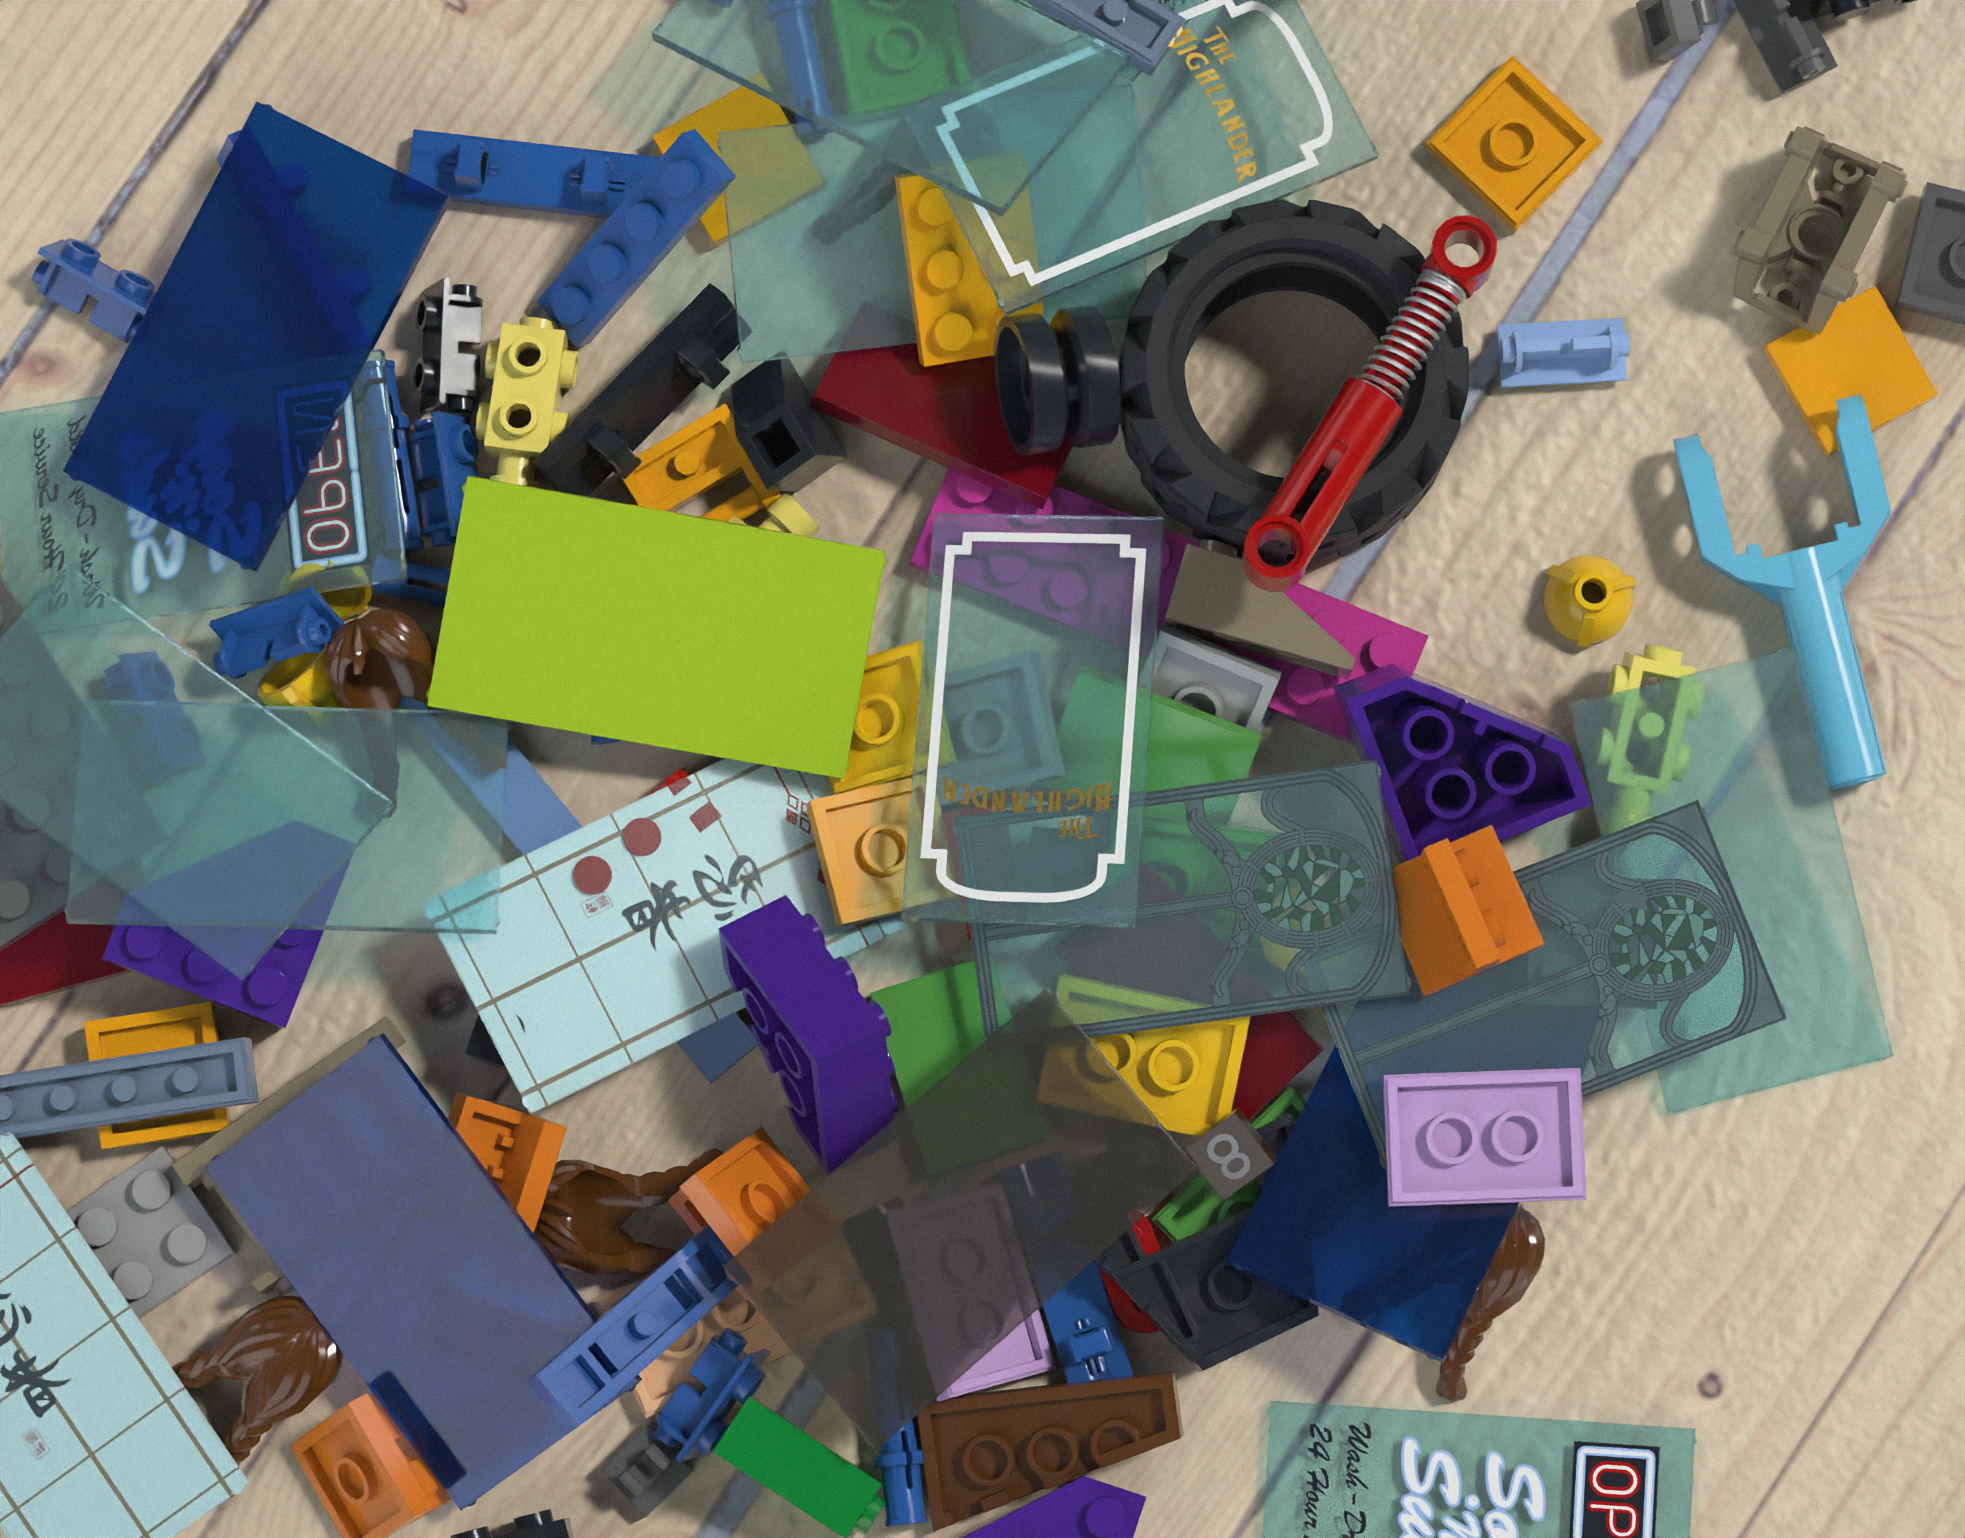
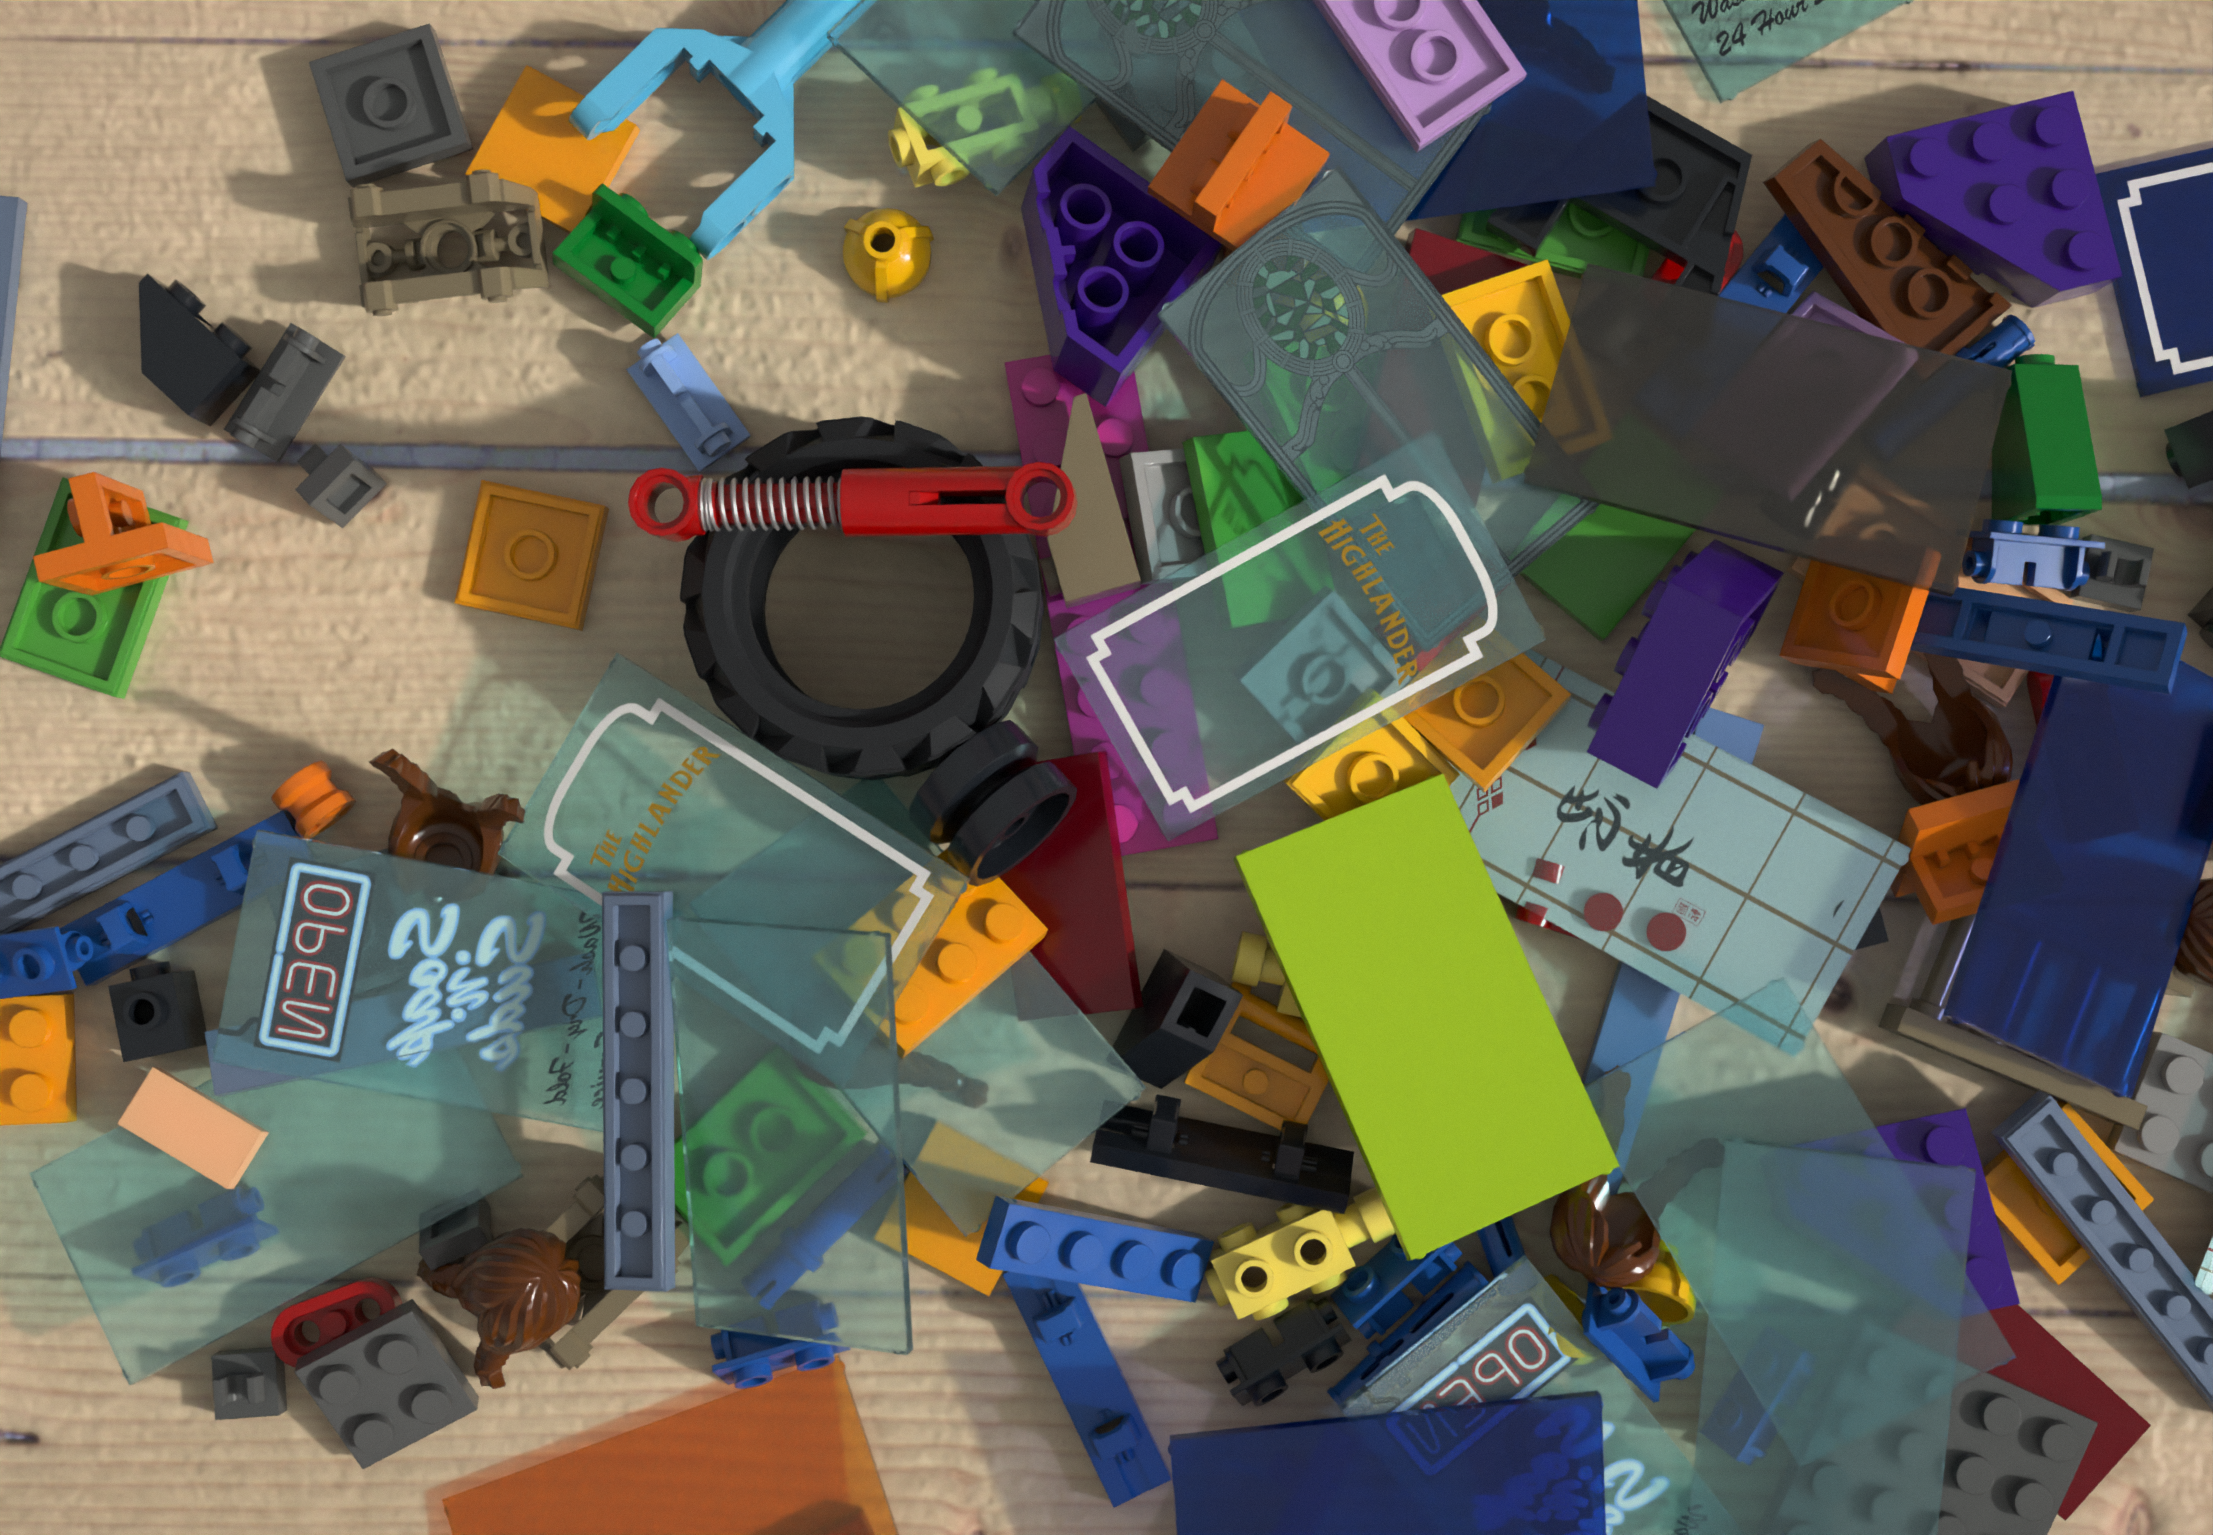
camera: 120 degrees left, 5 degrees up
(1230, 1153) = (1557, 244): dark brown tile -> none
(1710, 375) = (631, 261): none -> green bracket

